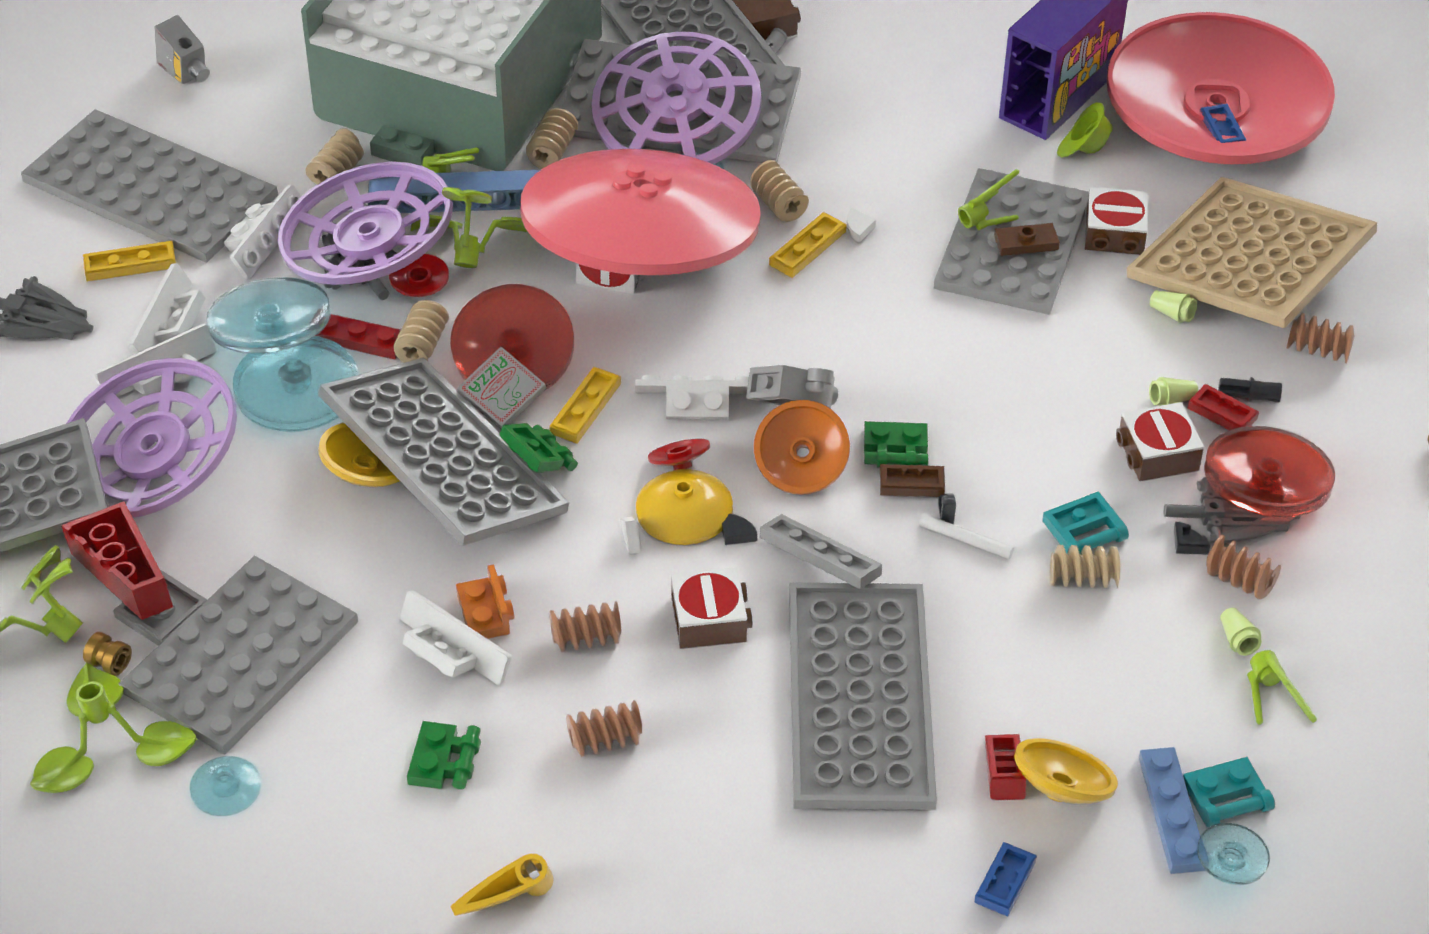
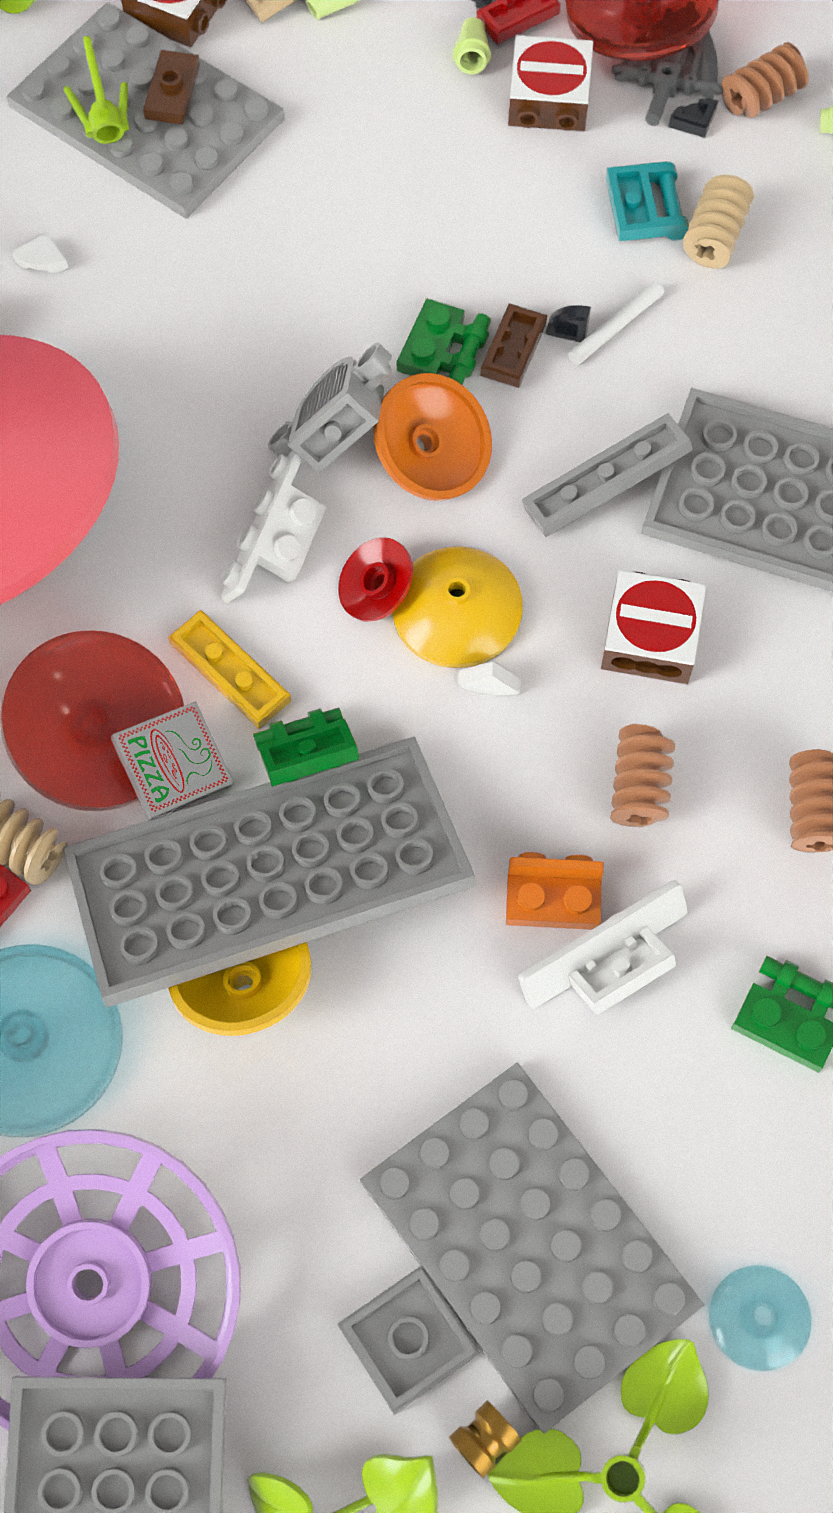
camera: 70 degrees left, 20 degrees up
(119, 558) = (313, 1379): red wedge -> none
(738, 530) = (521, 557): black tile -> none
(807, 244) = (46, 316): yellow tile -> none

